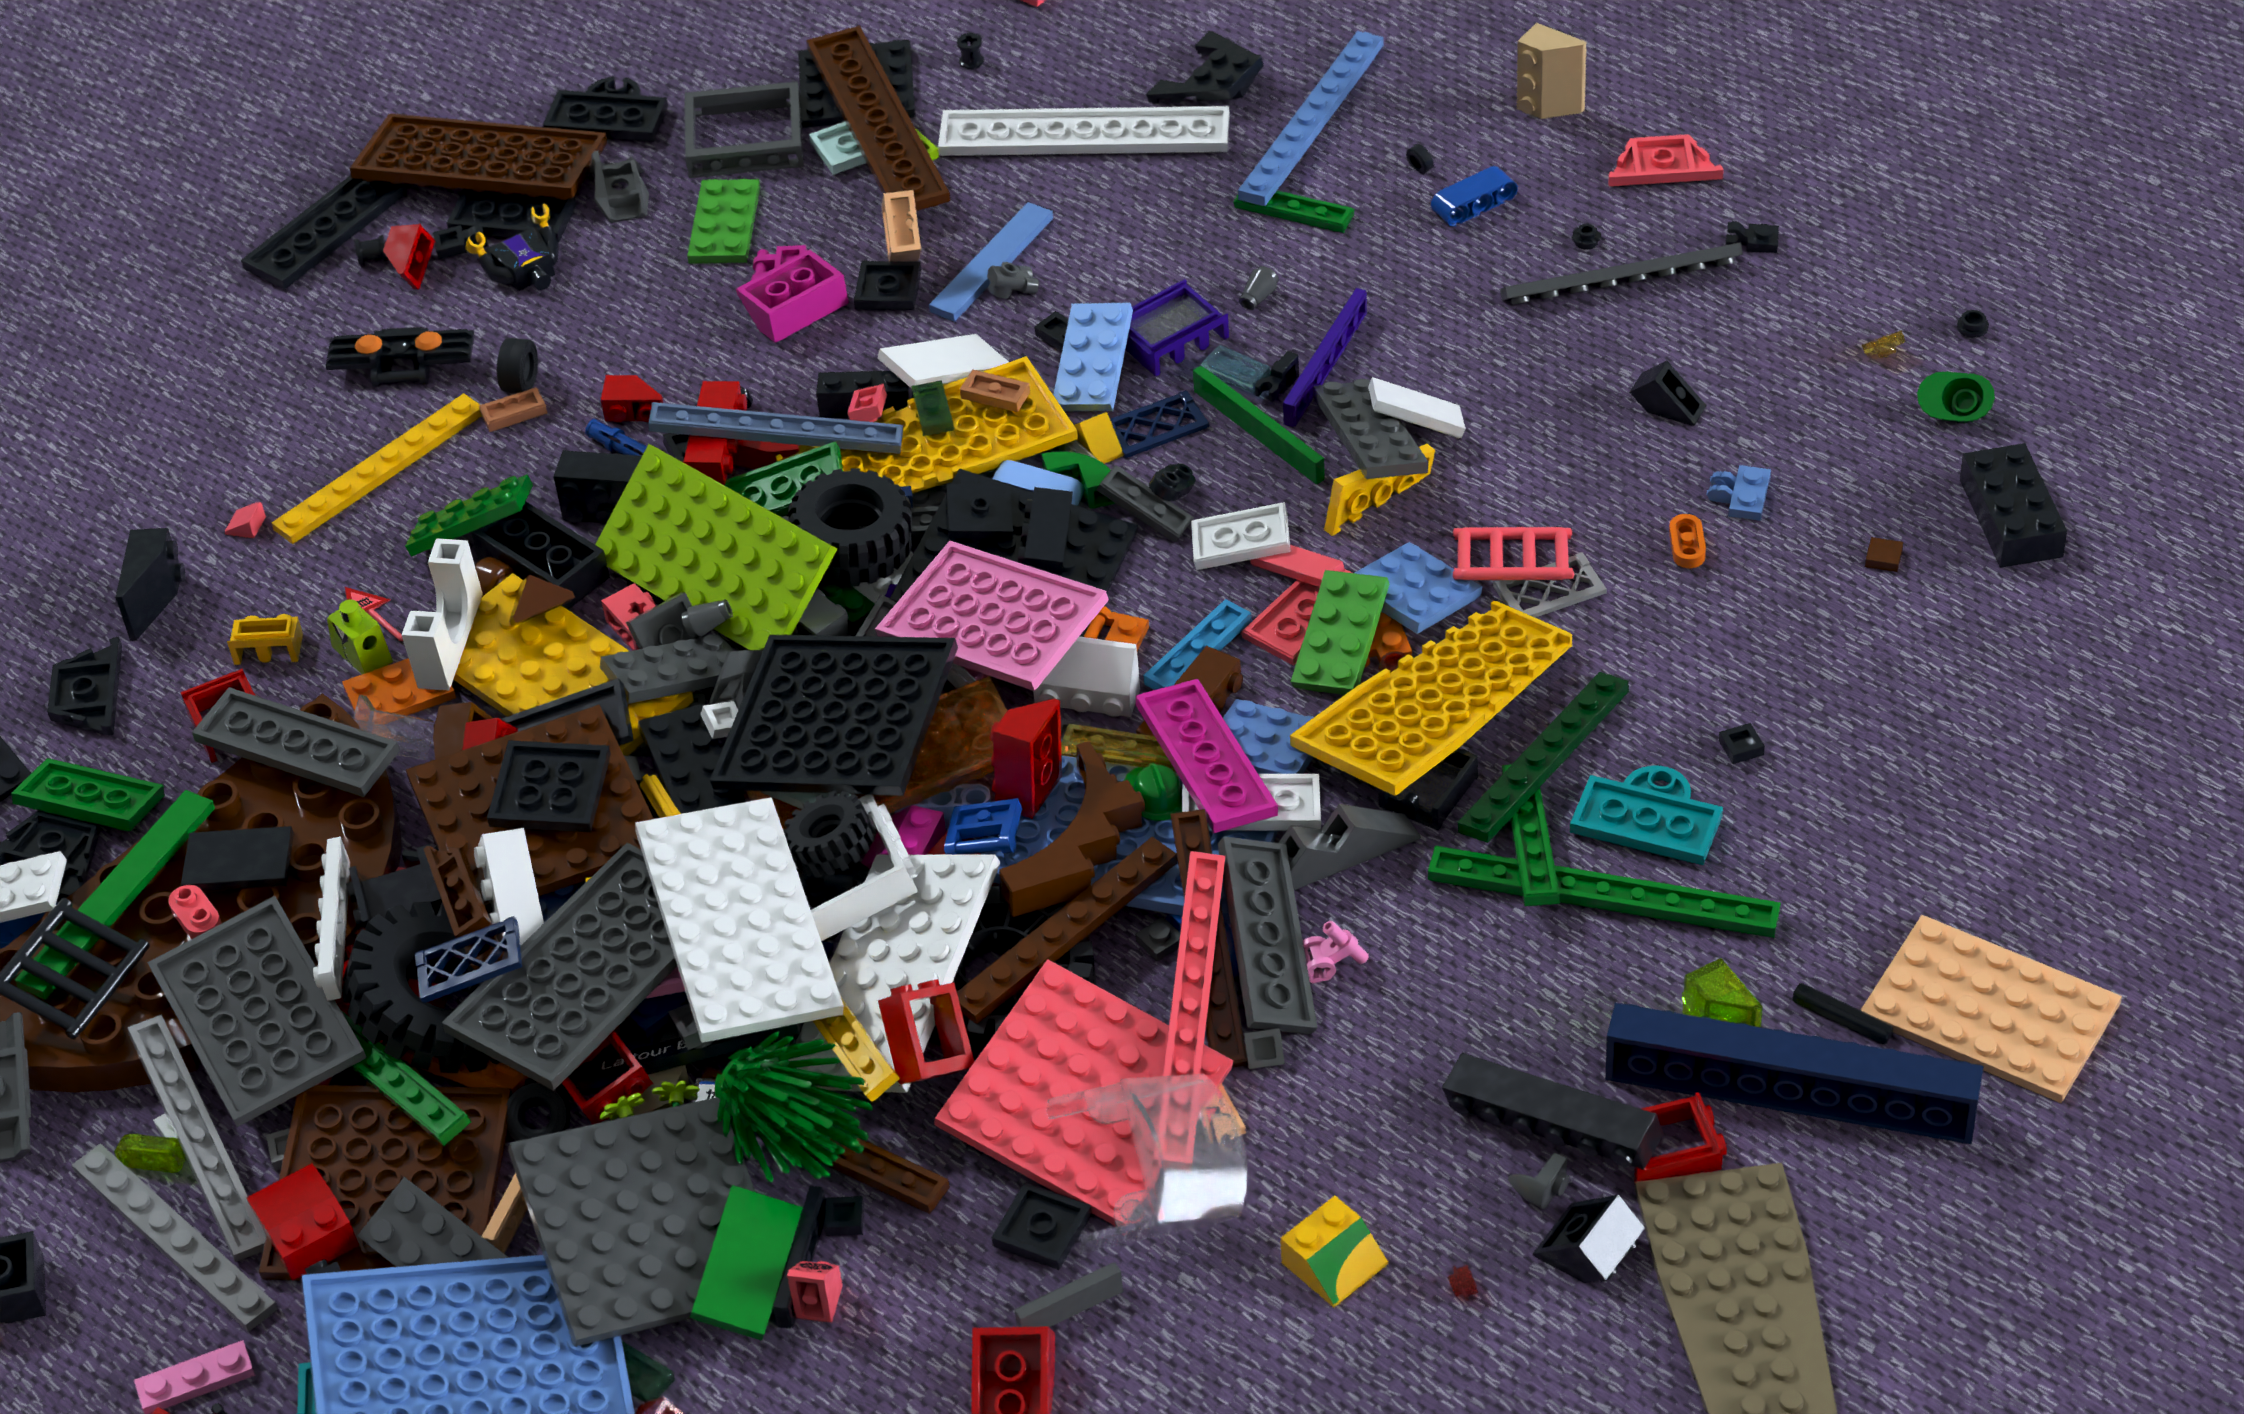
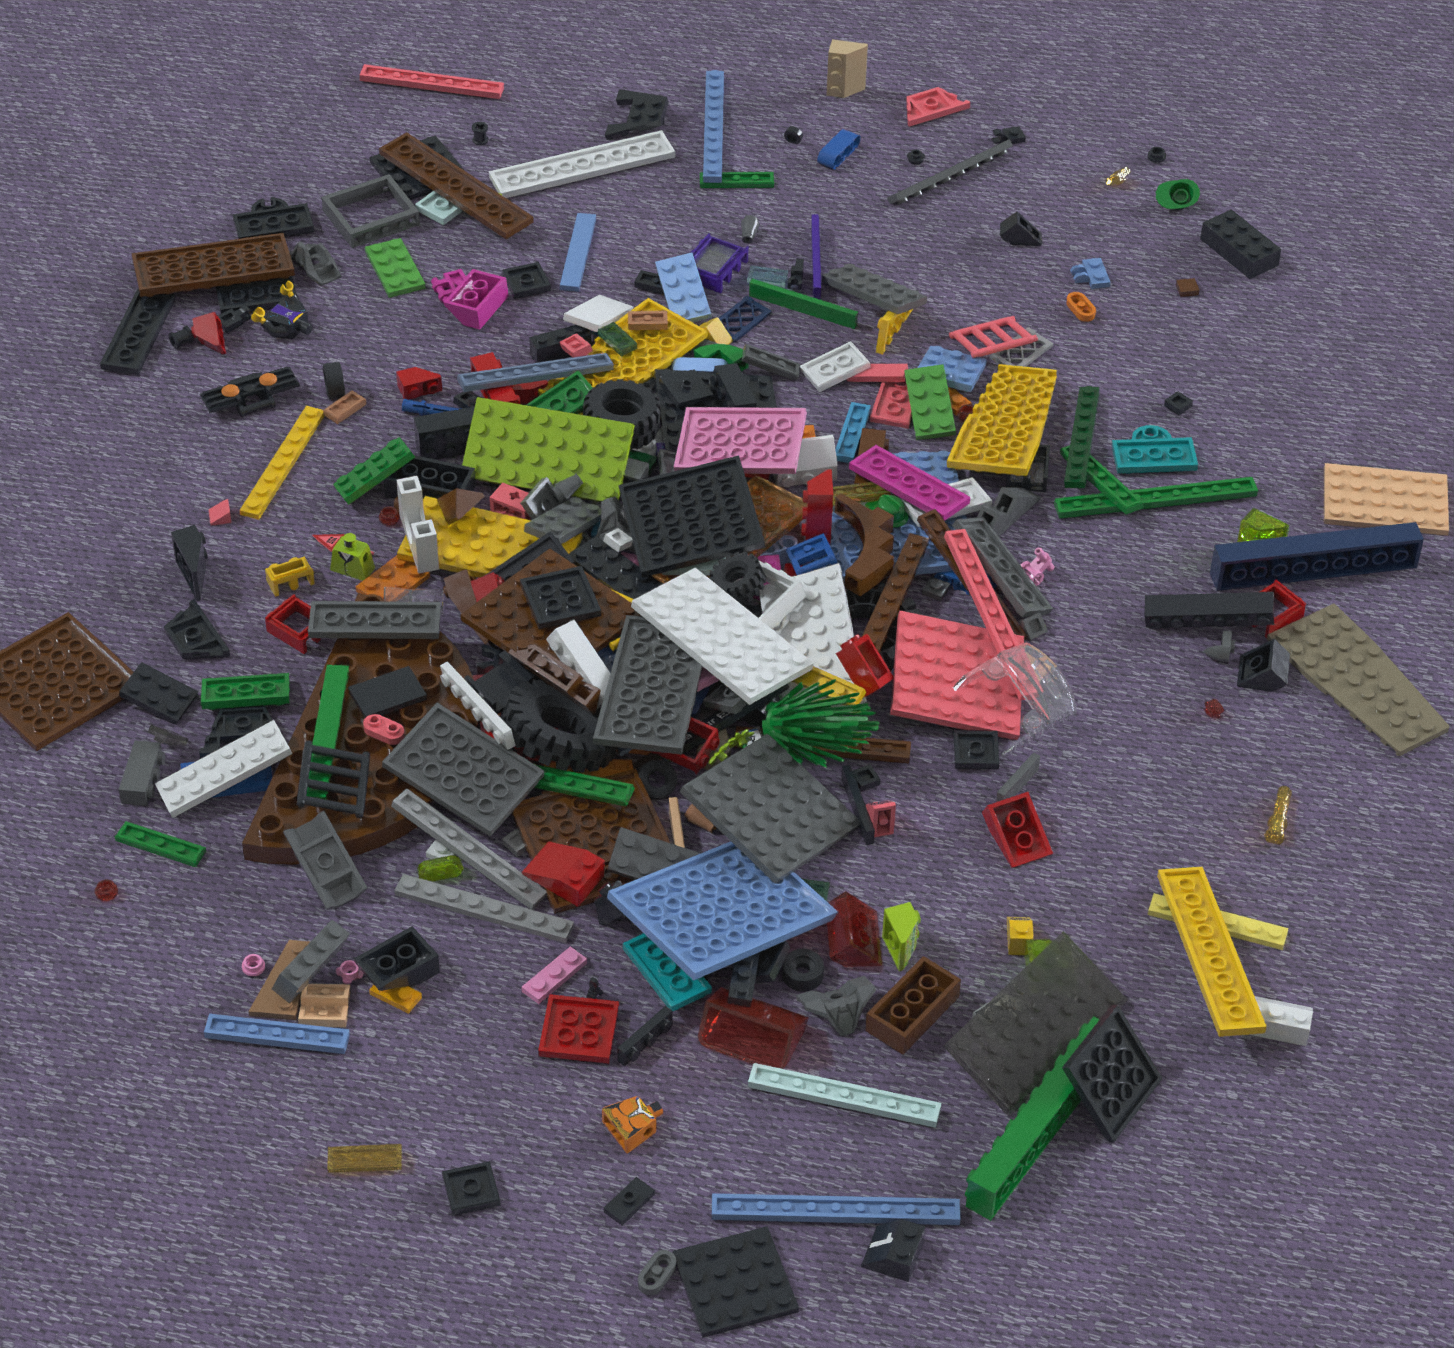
camera: 30 degrees left, 0 degrees up
(488, 969) = (606, 684): dark blue window -> none
(746, 1263) = (838, 813): green tile -> none
(901, 226) = (521, 234): light nougat window -> none
(1010, 277) = (600, 258): dark grey plate -> none
(1172, 482) = (777, 346): black plate -> none
(1332, 1251) = (1138, 714): yellow slope -> none
(1416, 408) = (891, 271): white tile -> none
(1843, 1013) = (1315, 522): black axle -> none

